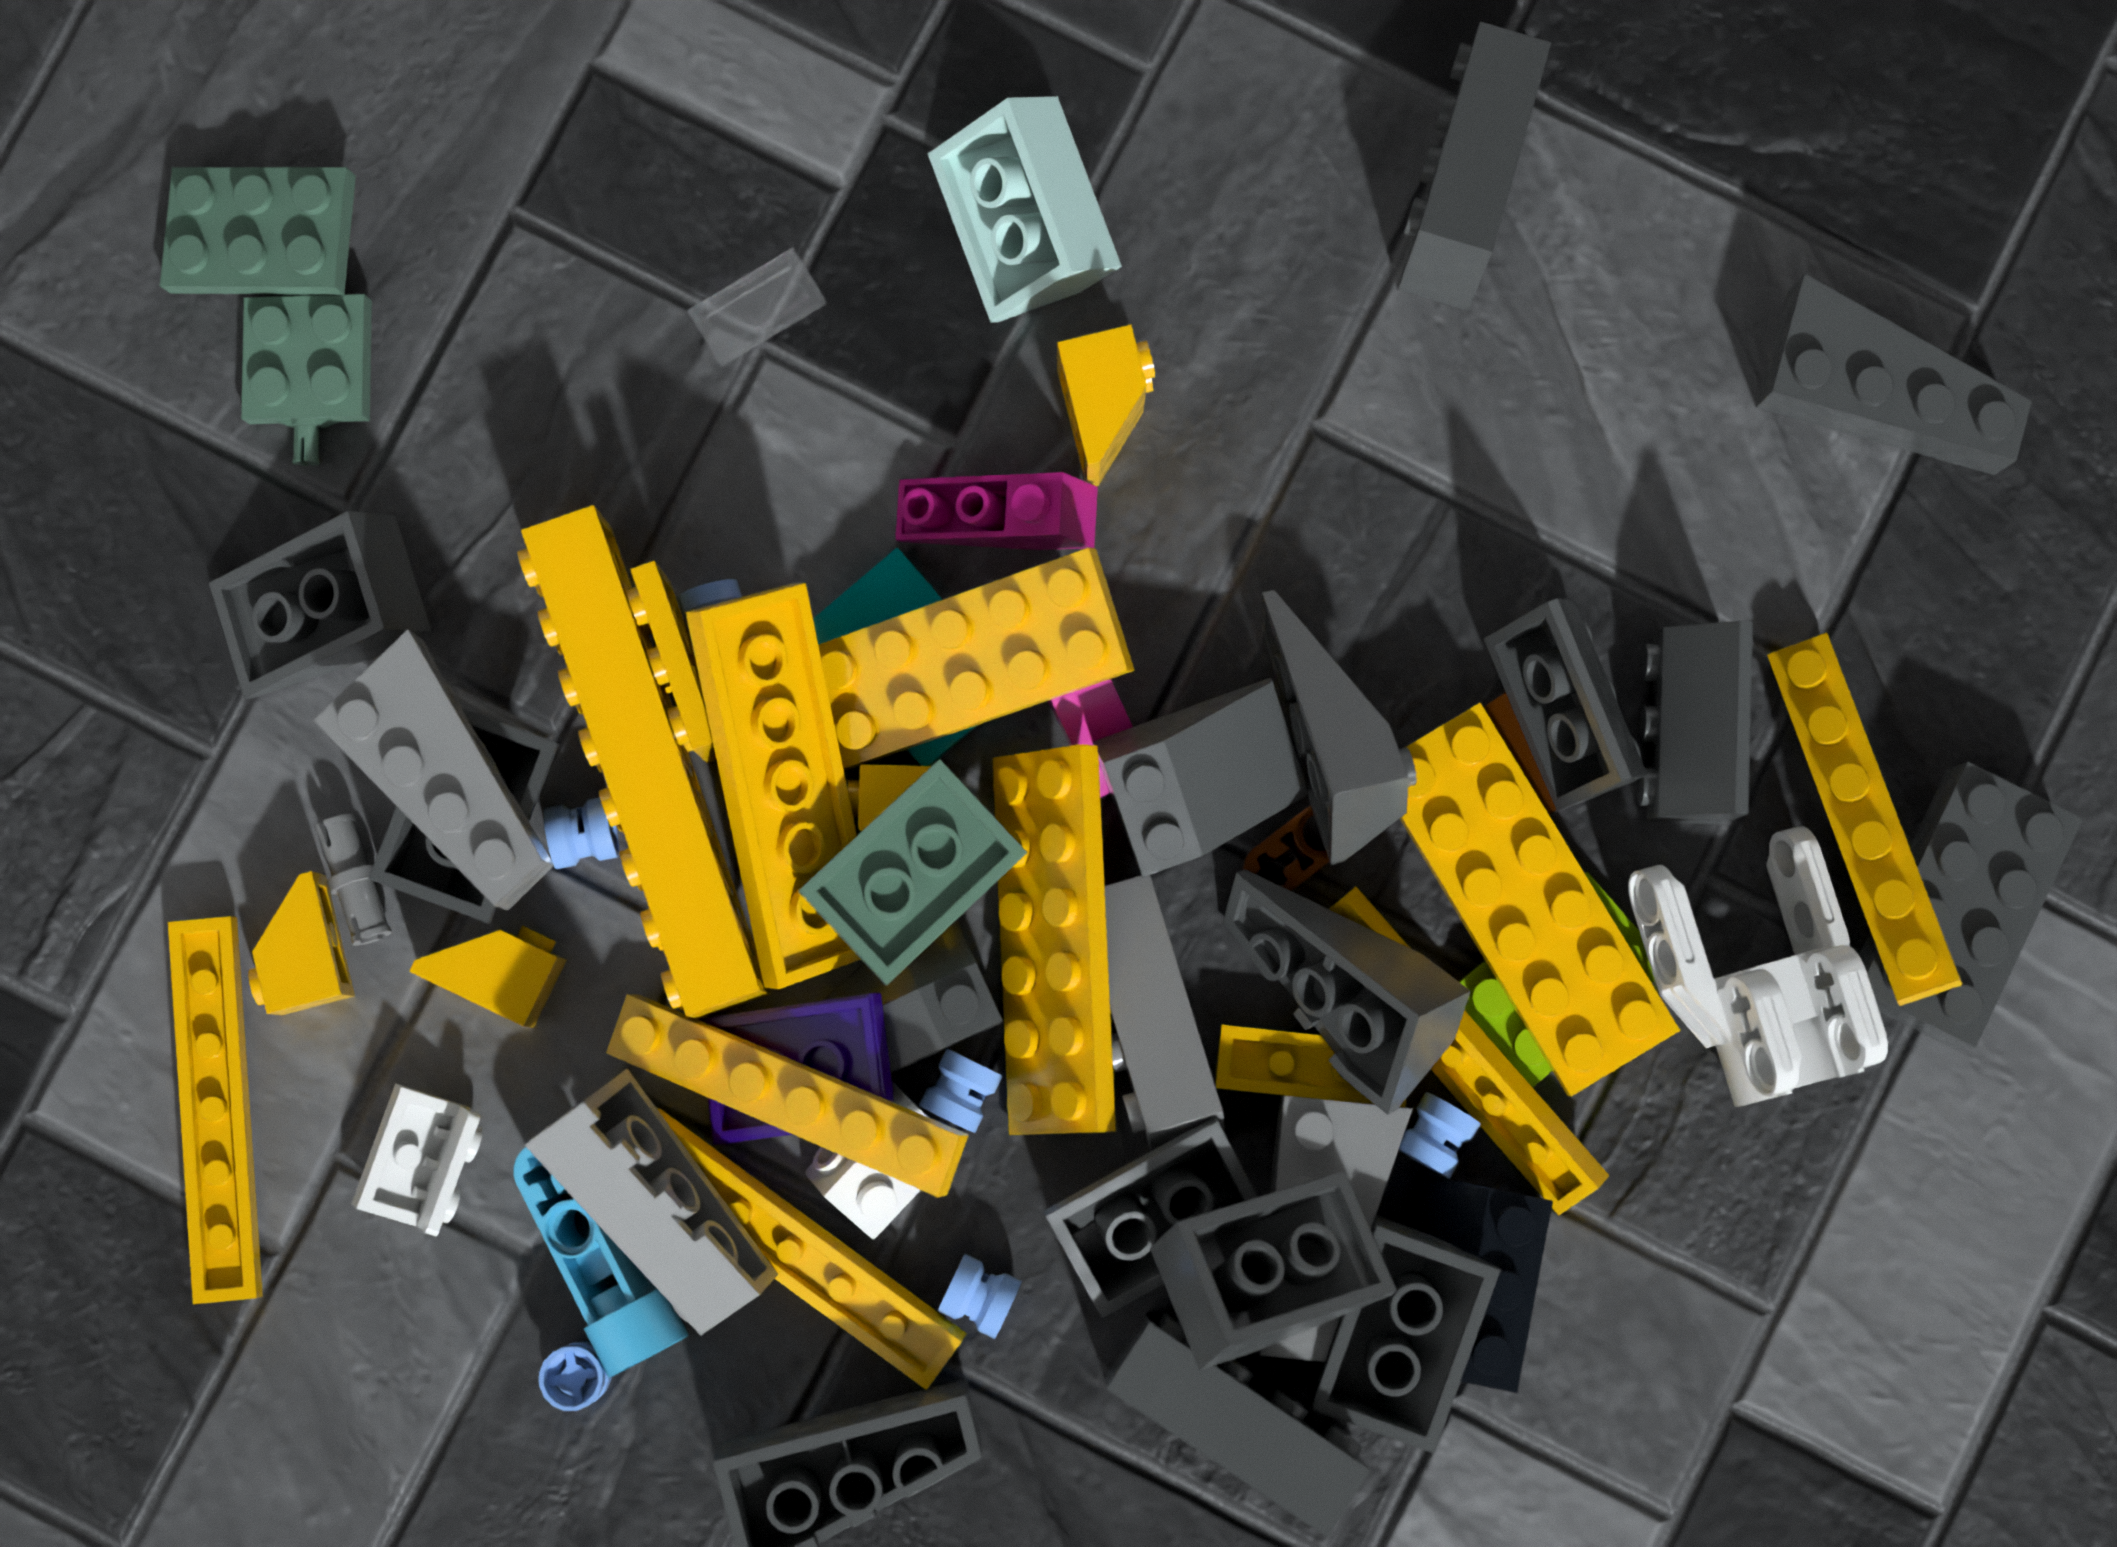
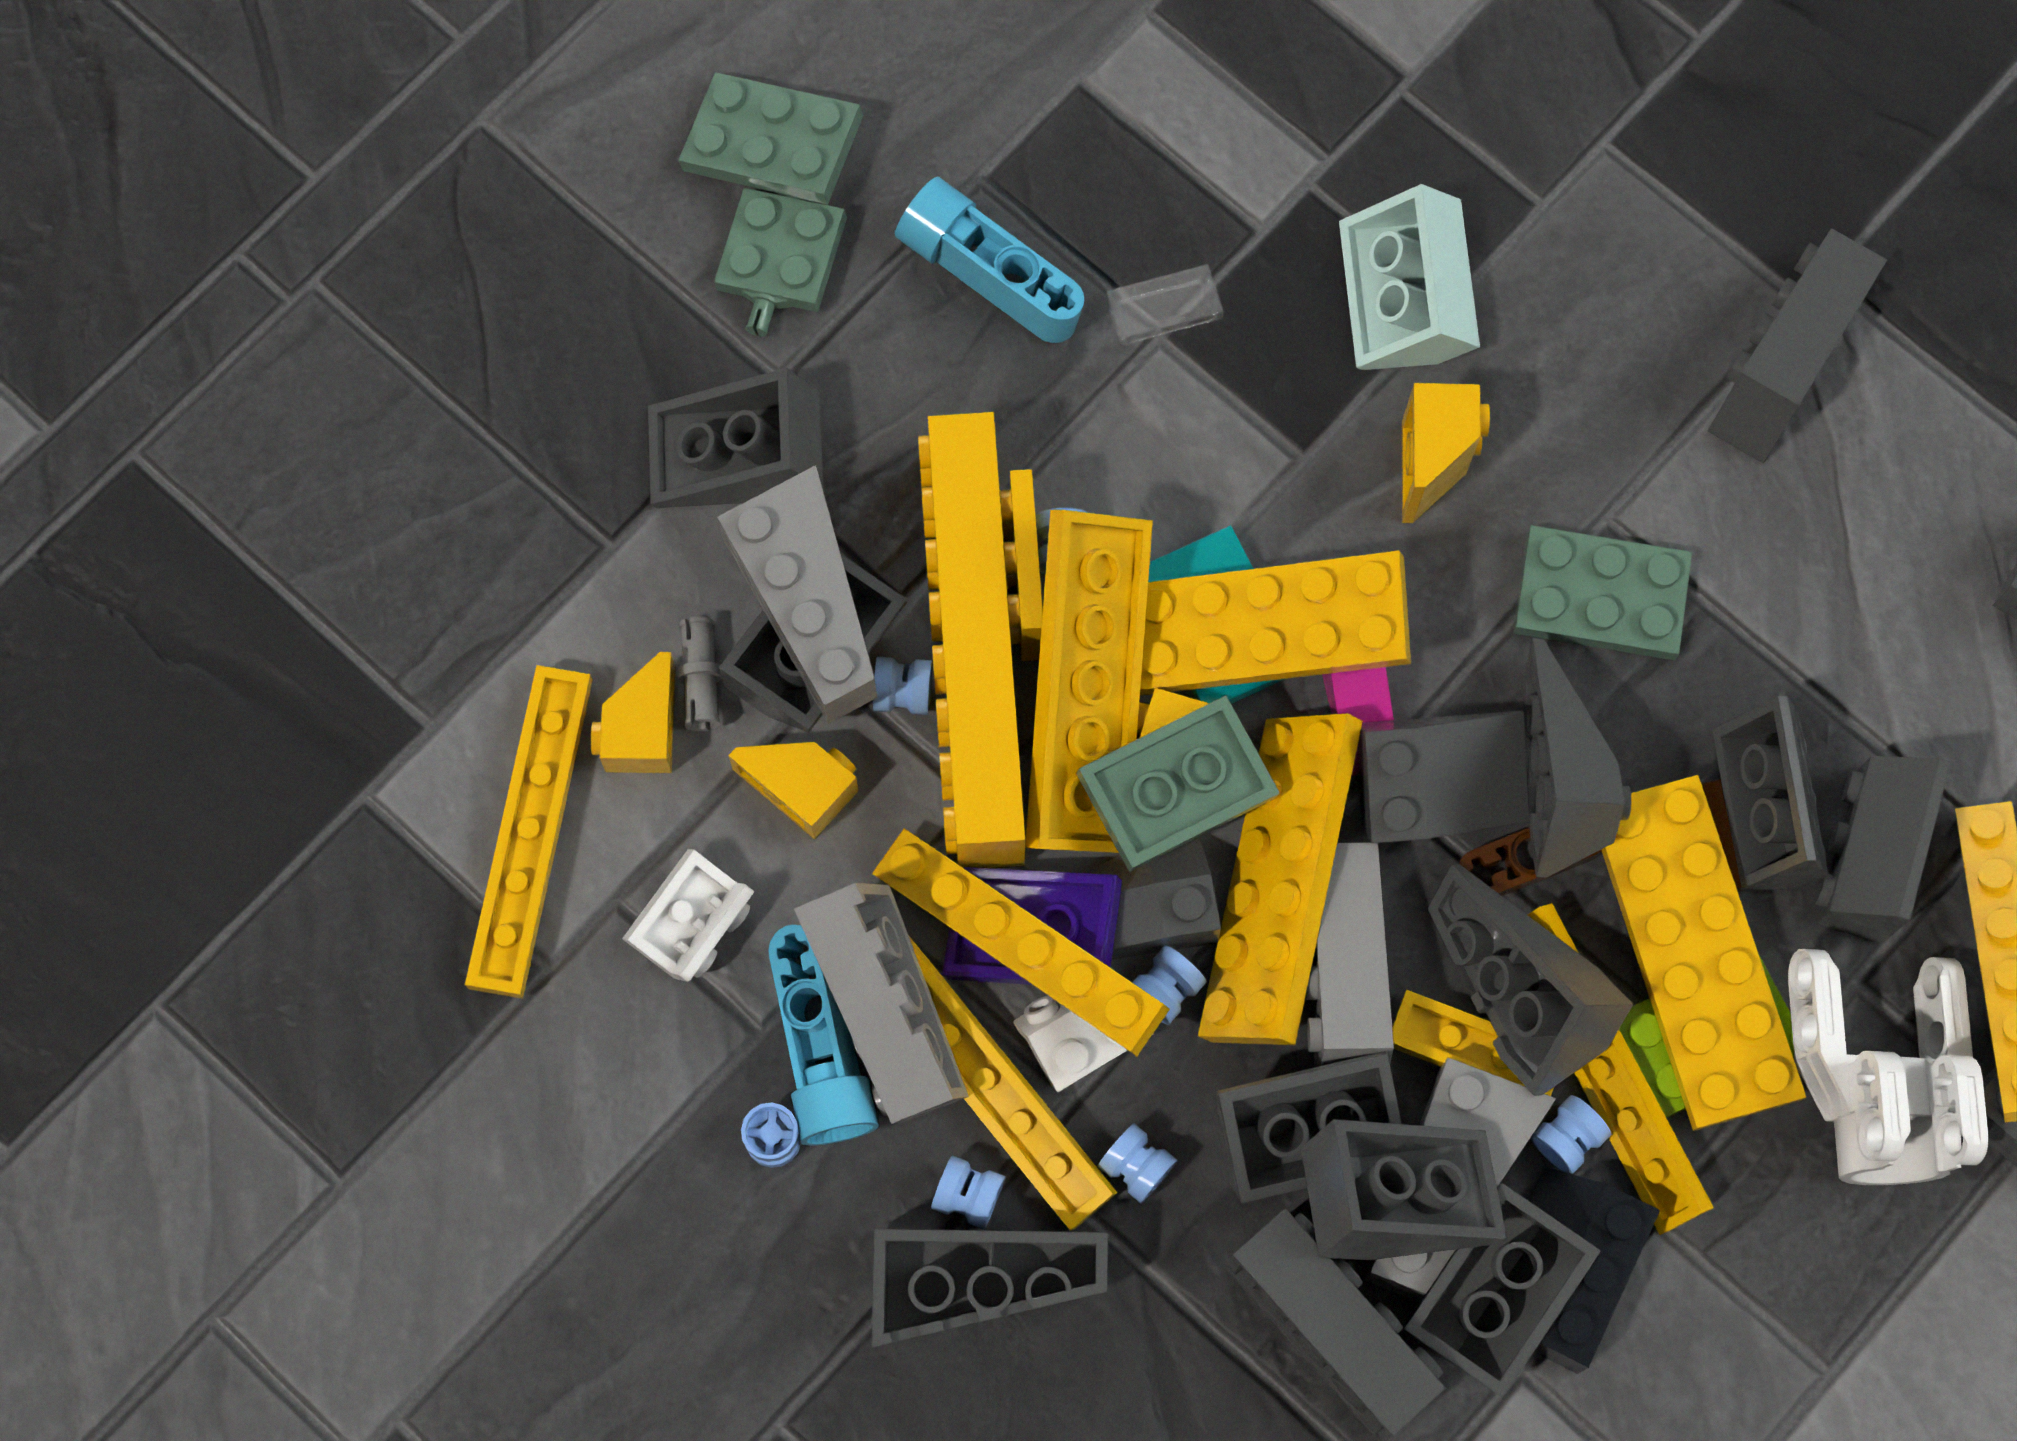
camera: 15 degrees right, 10 degrees down
(484, 286) = (944, 227): none -> medium azure beam
(819, 1383) = (980, 1197): none -> light blue wheel
(998, 511) = (1322, 516): dark pink slope -> none
(1326, 511) = (1603, 592): none -> sand green plate

